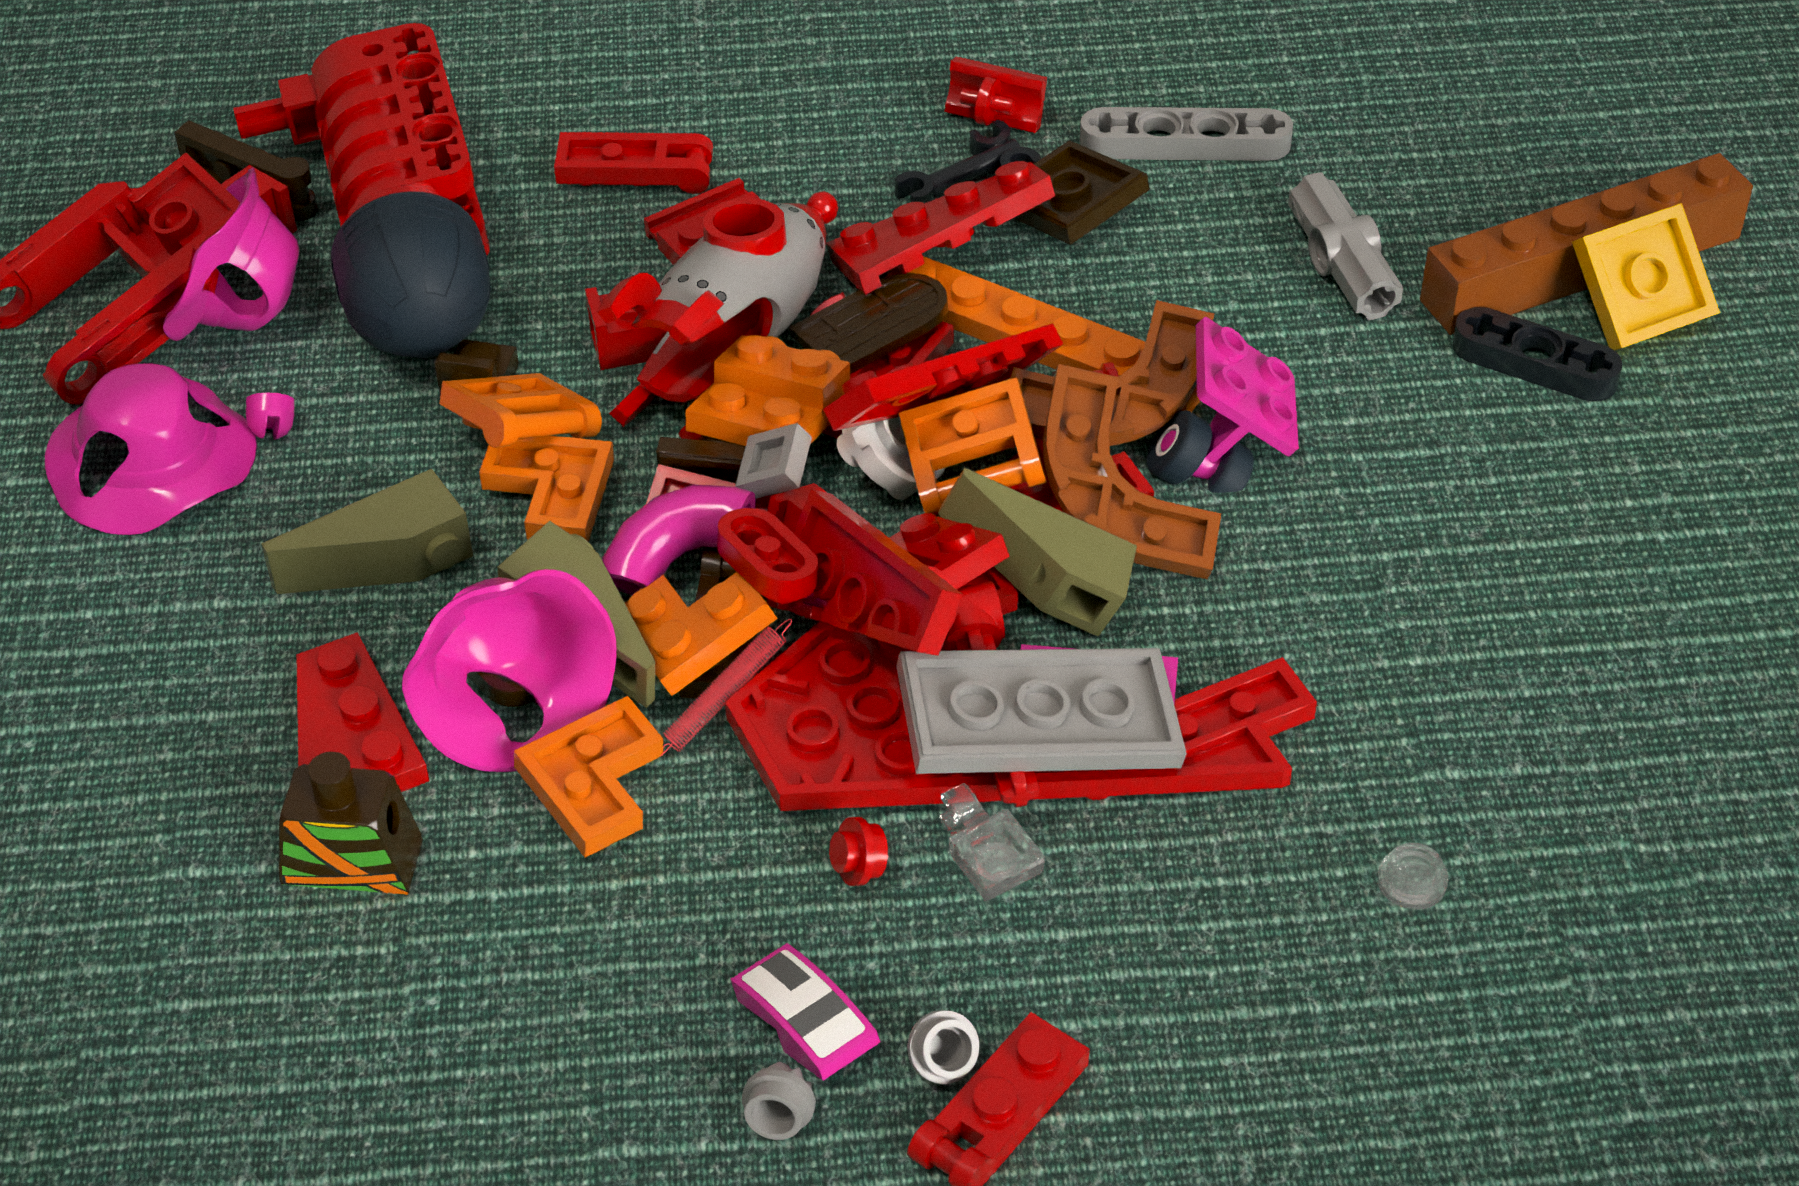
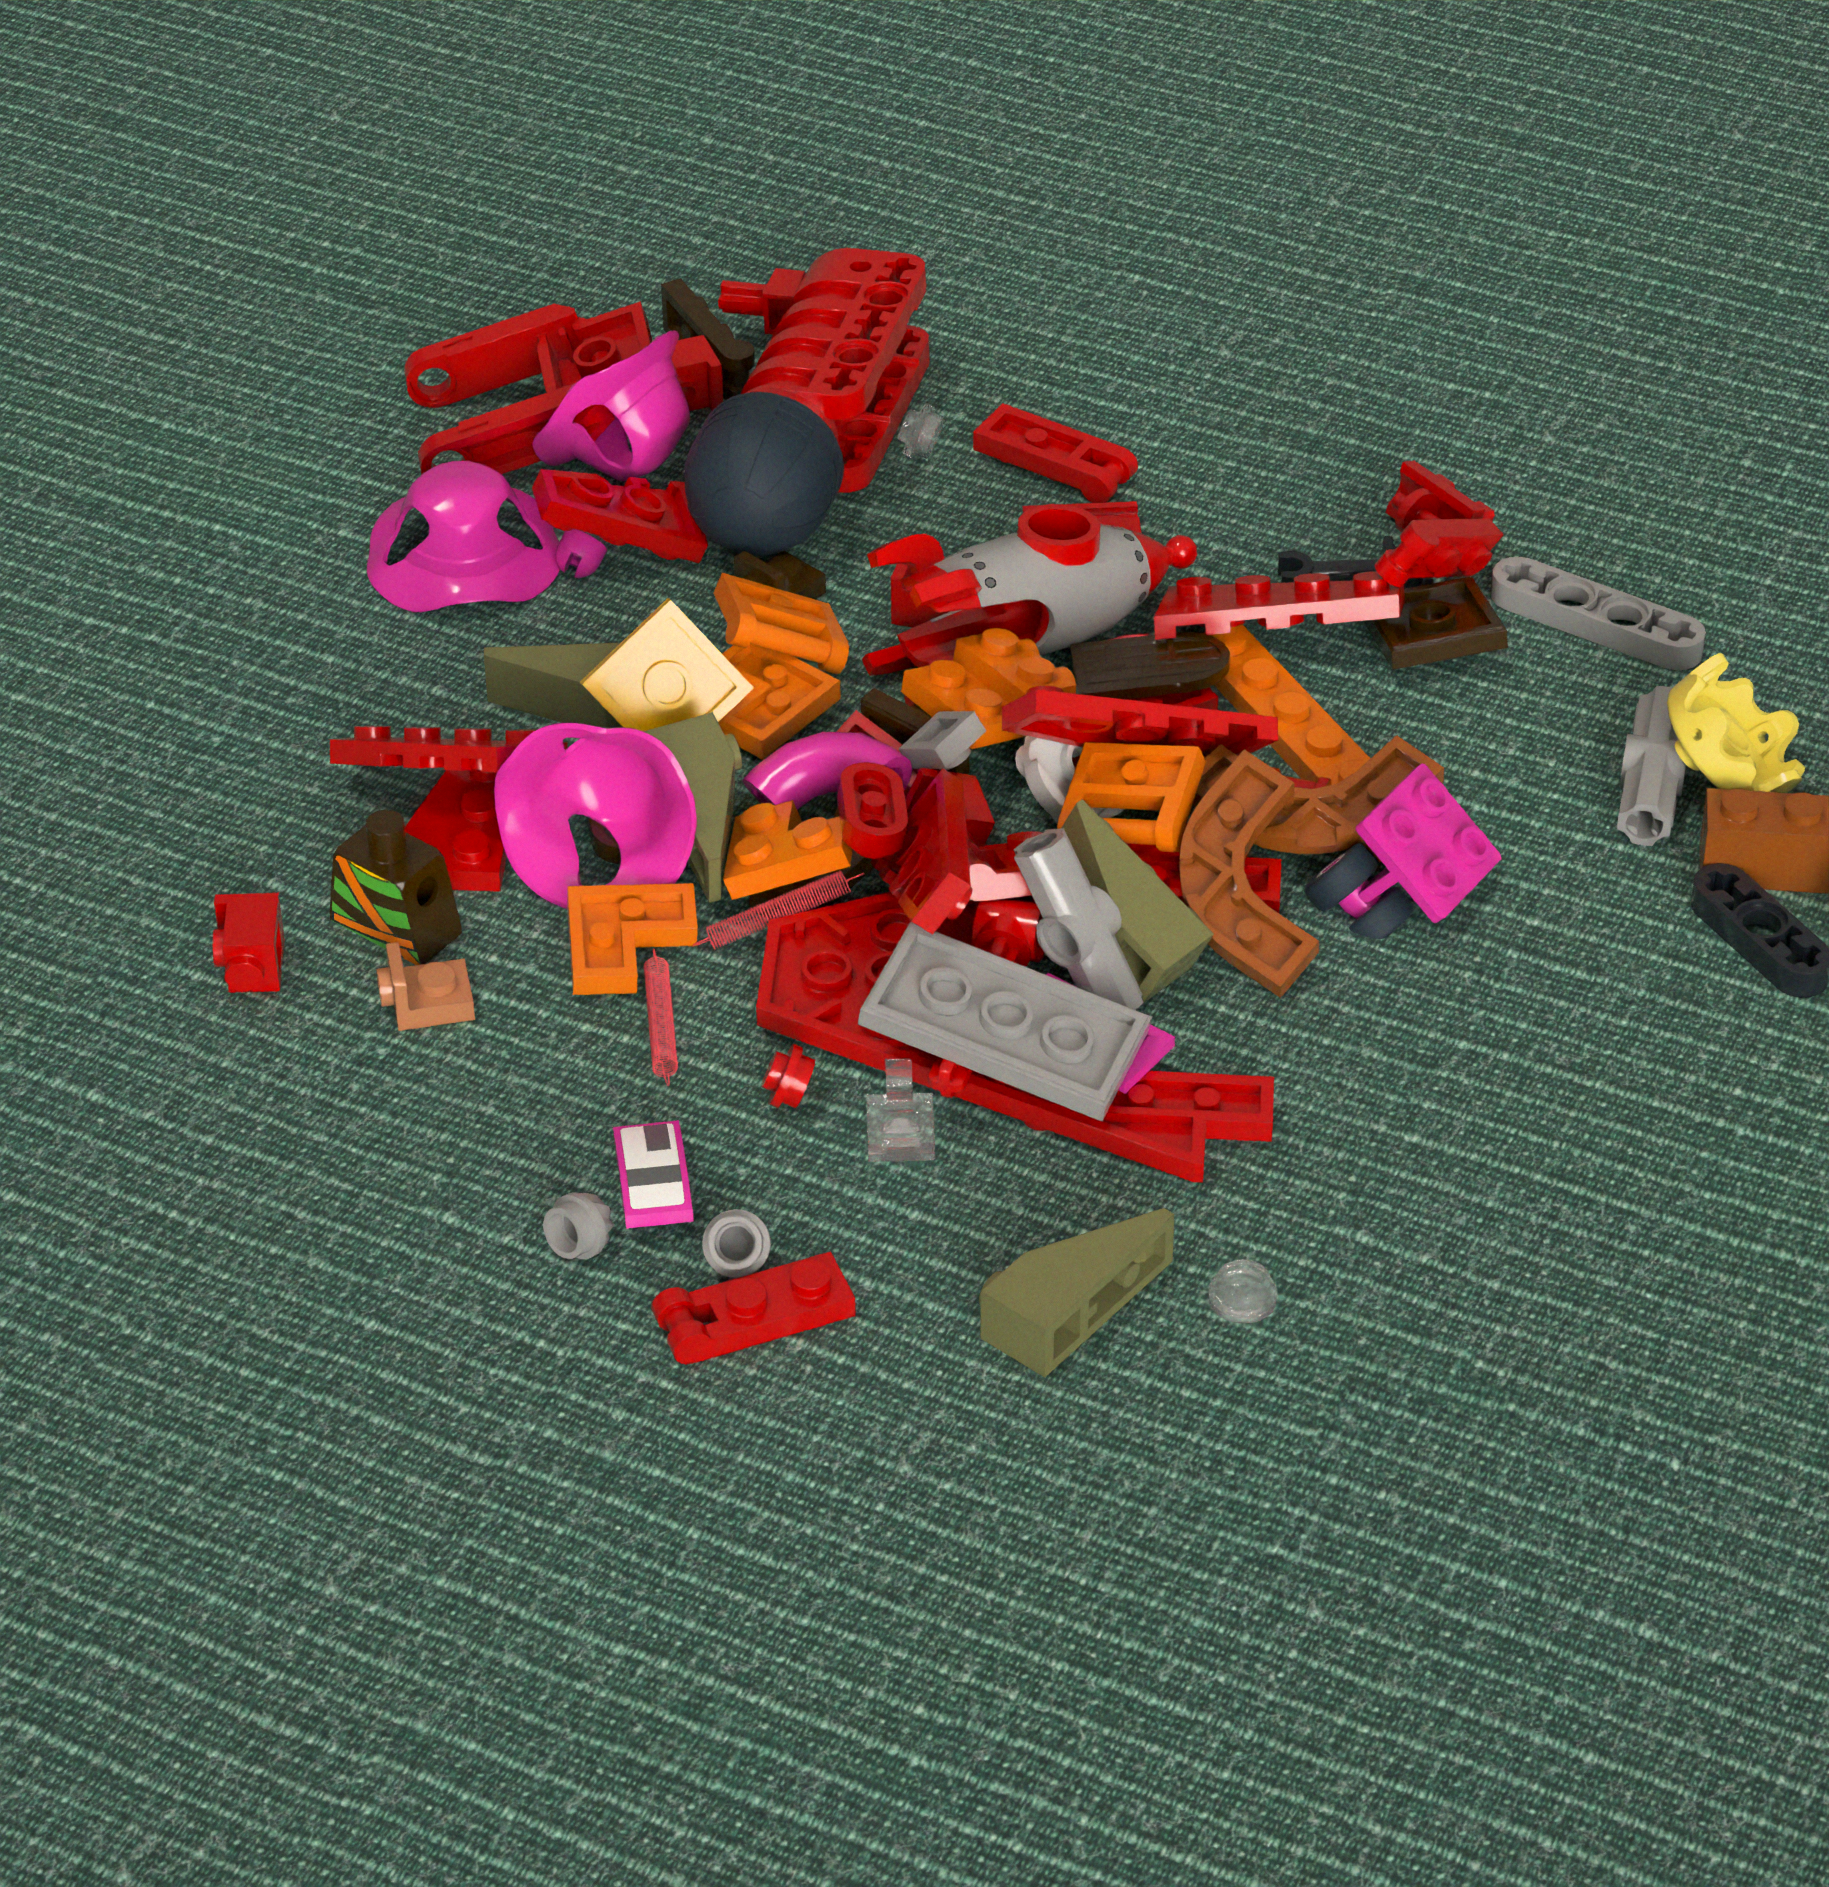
camera: 30 degrees right, 5 degrees down
(228, 947) = (249, 941): none -> red brick
(295, 359) = (621, 514): none -> red wing
(387, 640) = (425, 749): none -> red wing
(440, 919) = (425, 992): none -> nougat bracket
(472, 506) = (665, 674): none -> plate
(503, 183) = (921, 431): none -> clear plate
(694, 837) = (669, 1018): none -> coral piece
(1033, 581) = (1076, 919): none -> light grey piece
(1047, 127) = (1439, 550): none -> red plate
(1270, 953) = (1072, 1287): none -> olive slope
(1401, 195) = (1725, 732): none -> light yellow plate

